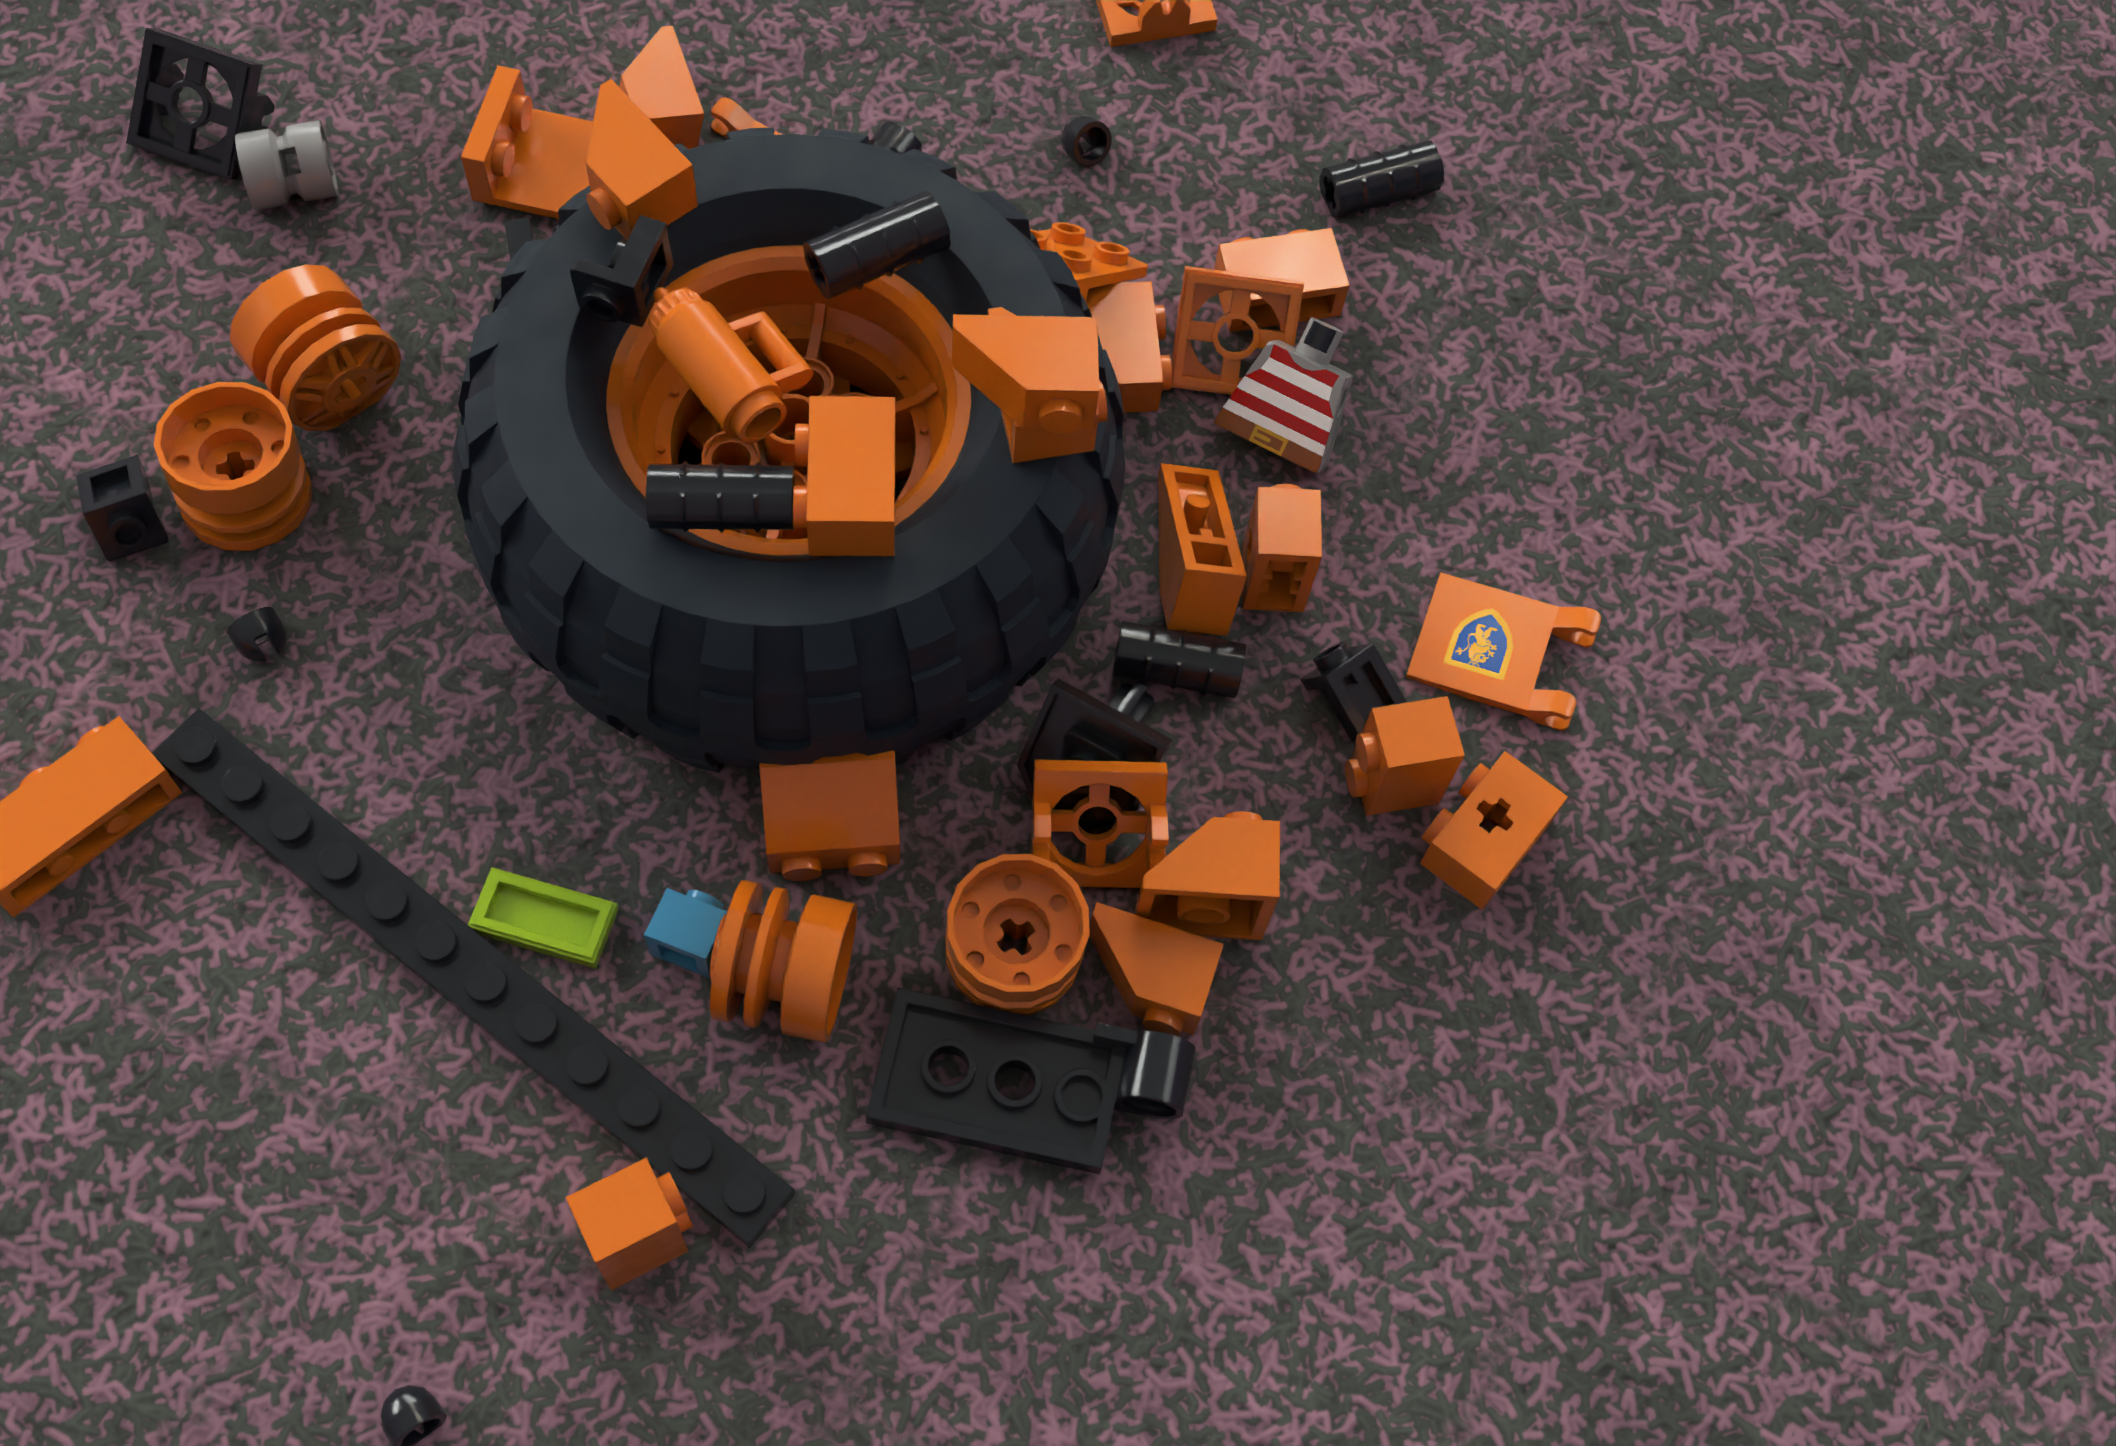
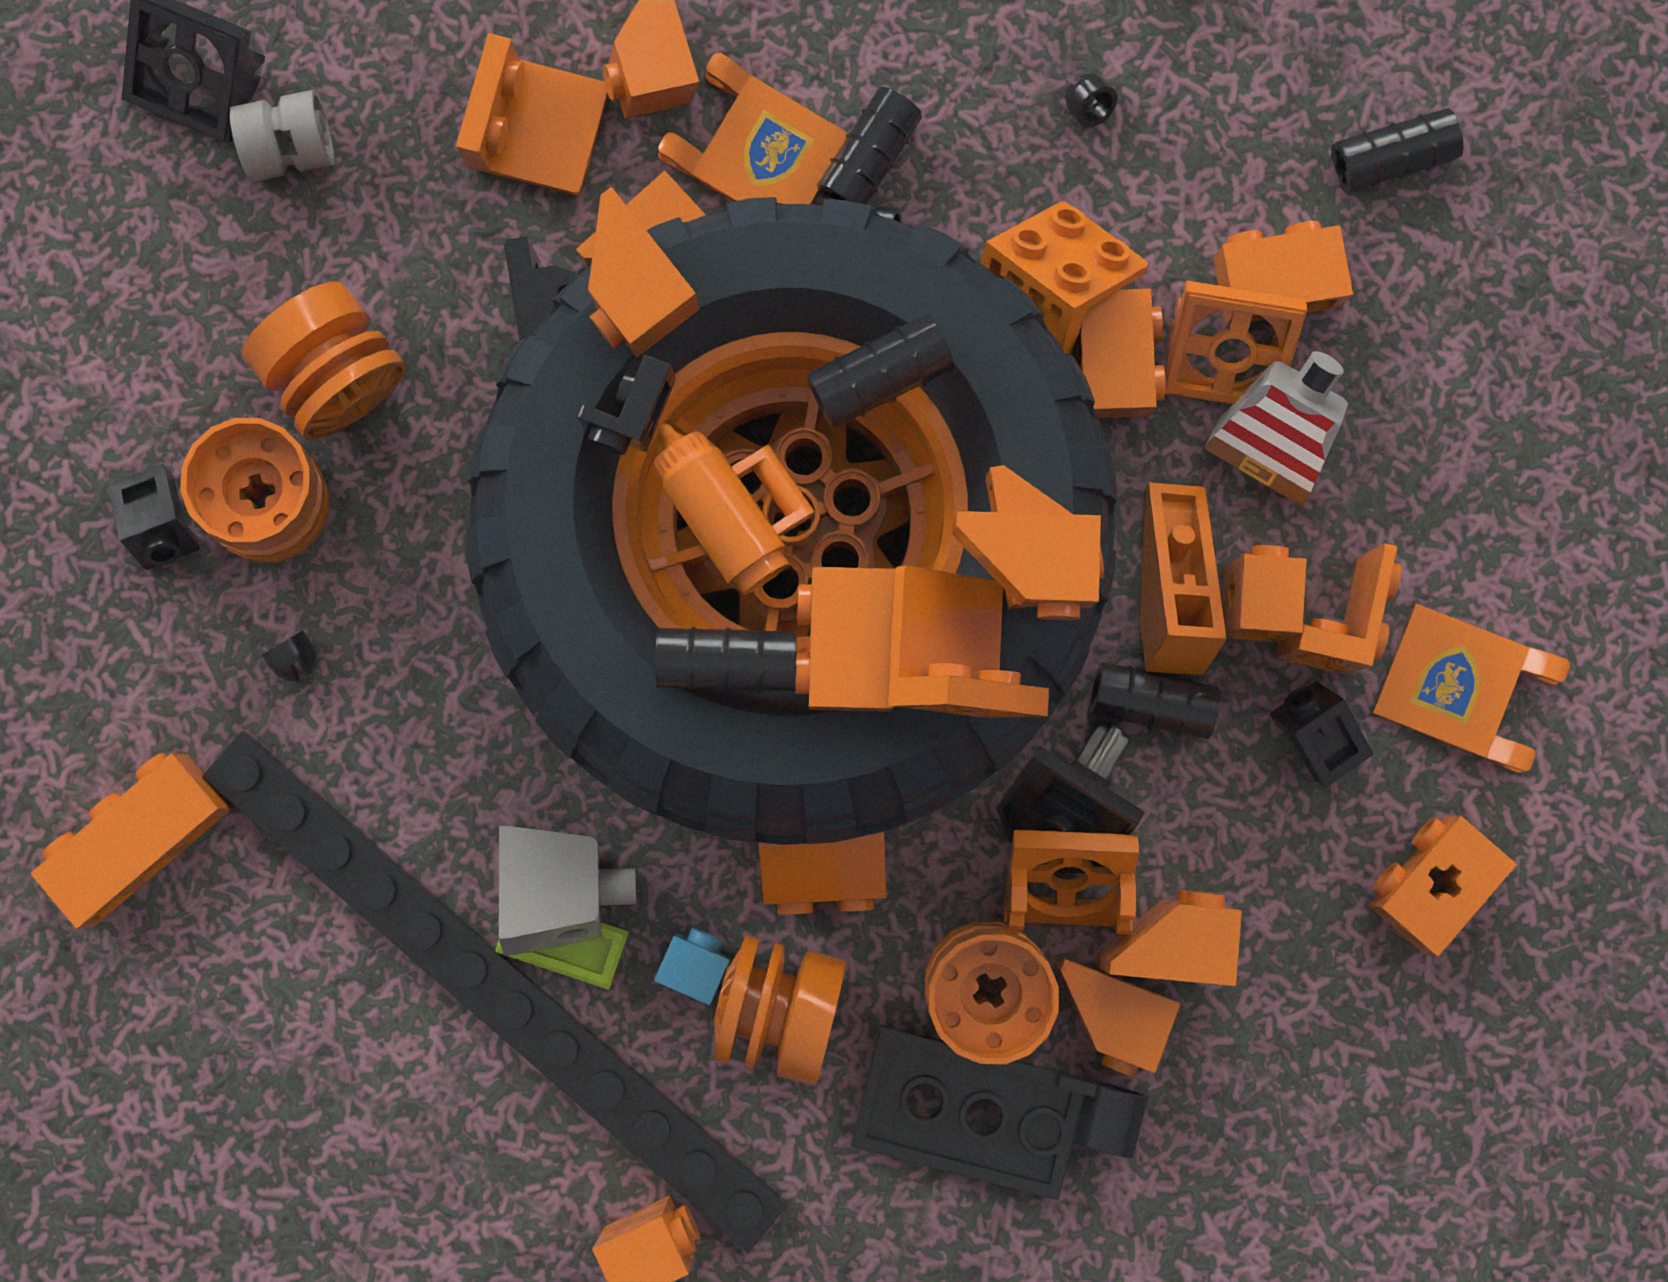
camera: 10 degrees right, 20 degrees up
(536, 850) = (554, 889): none -> light grey torso
(953, 477) = (951, 648): none -> orange bracket
(1360, 593) = (1363, 635): none -> orange bracket
(1405, 756) = (1364, 822): orange piece -> none

